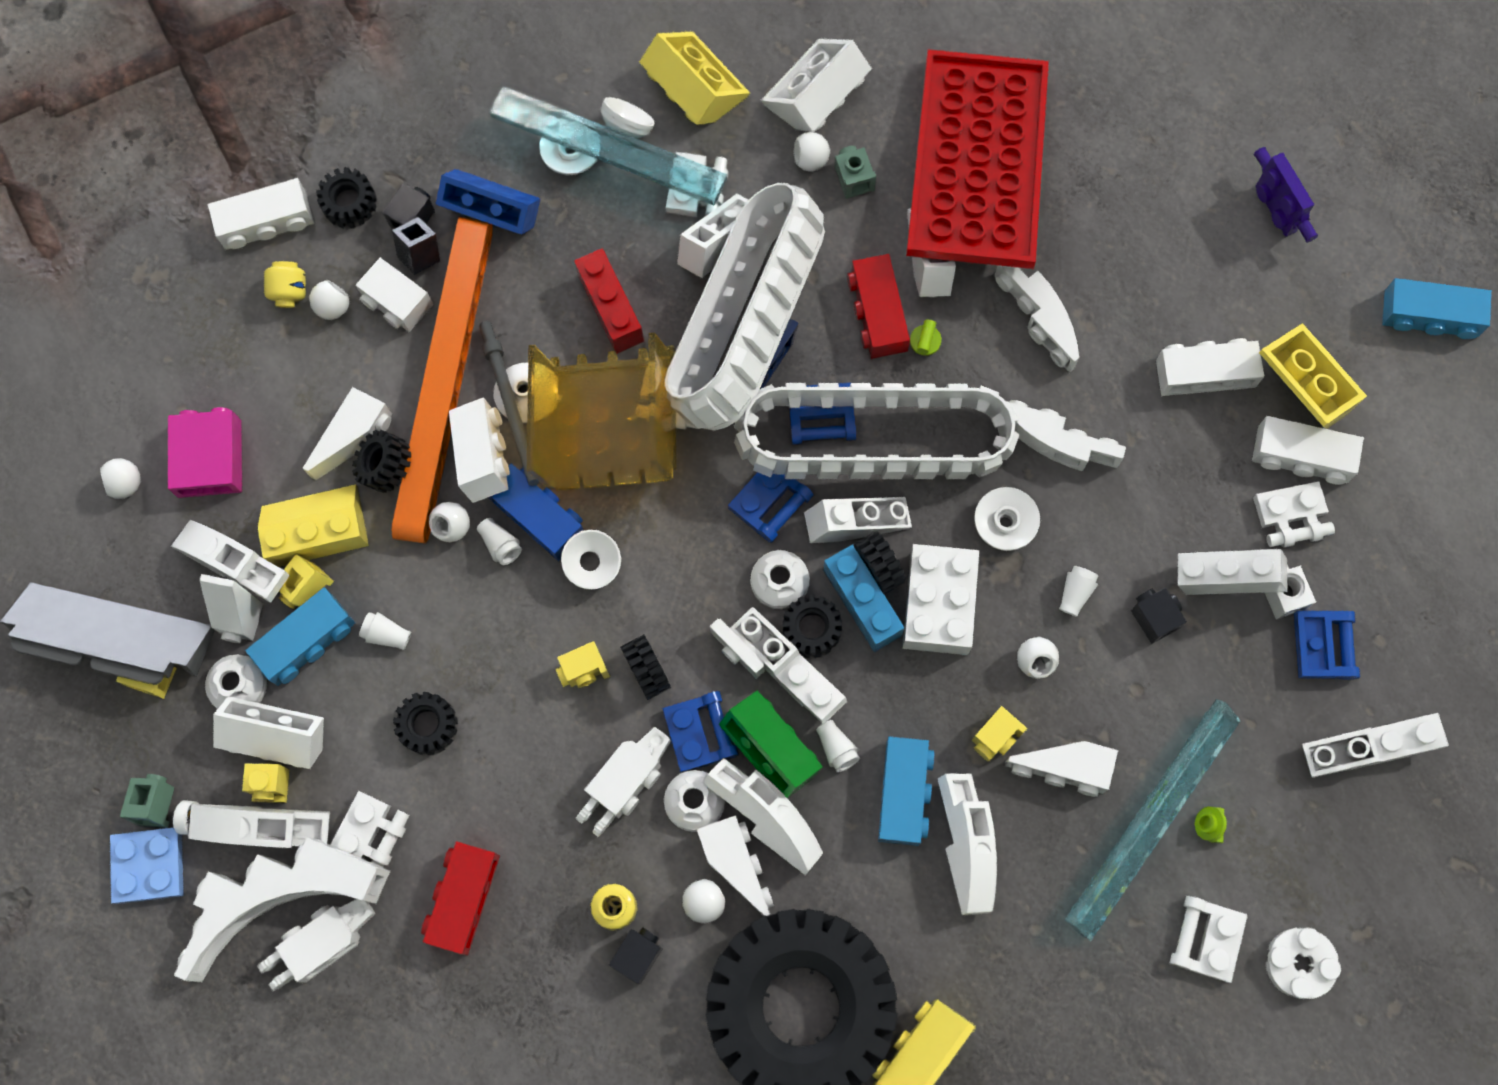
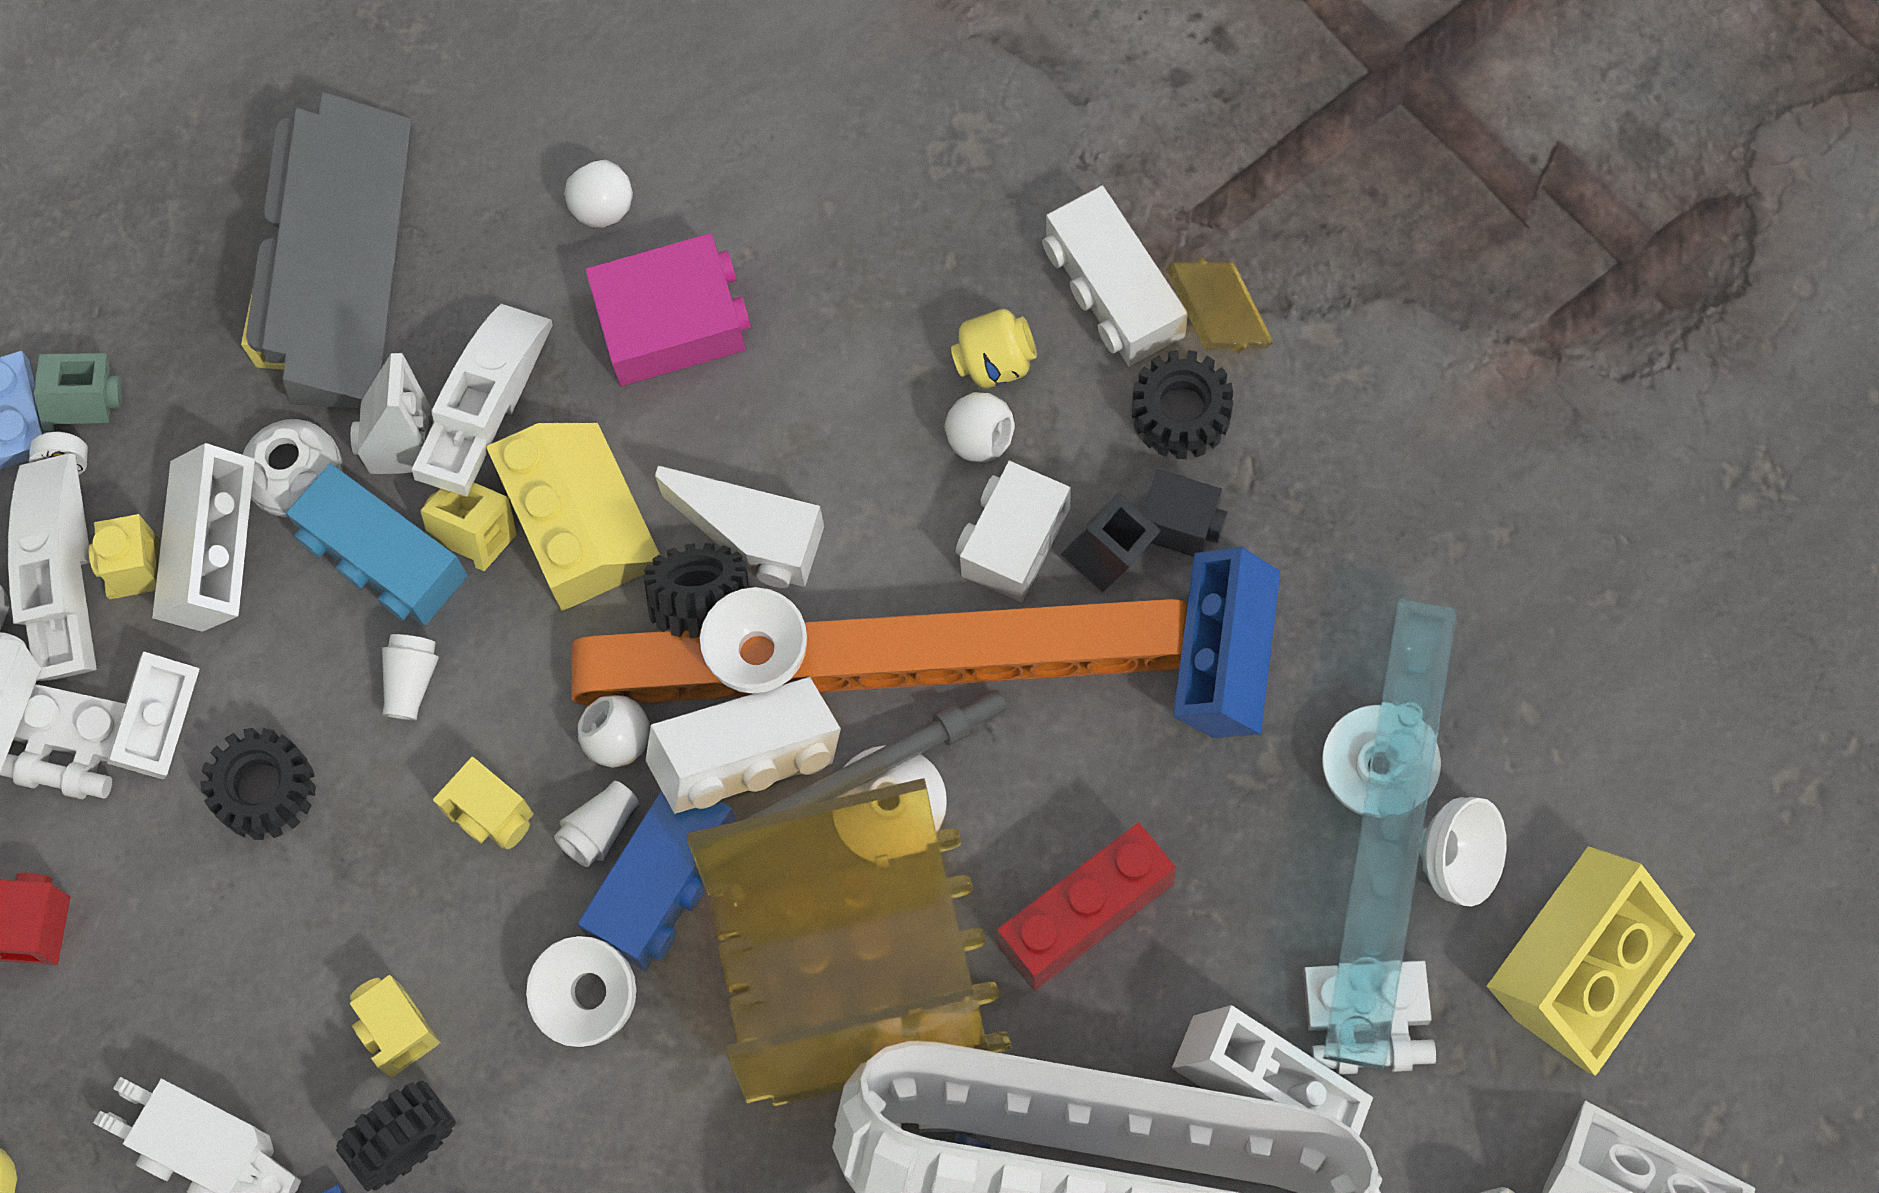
camera: 80 degrees right, 5 degrees down
(296, 165) = (1219, 305): none -> clear yellow piece
(368, 778) = (153, 715): none -> white plate
(414, 417) = (747, 615): none -> white piece
(473, 597) = (485, 806): none -> light yellow brick

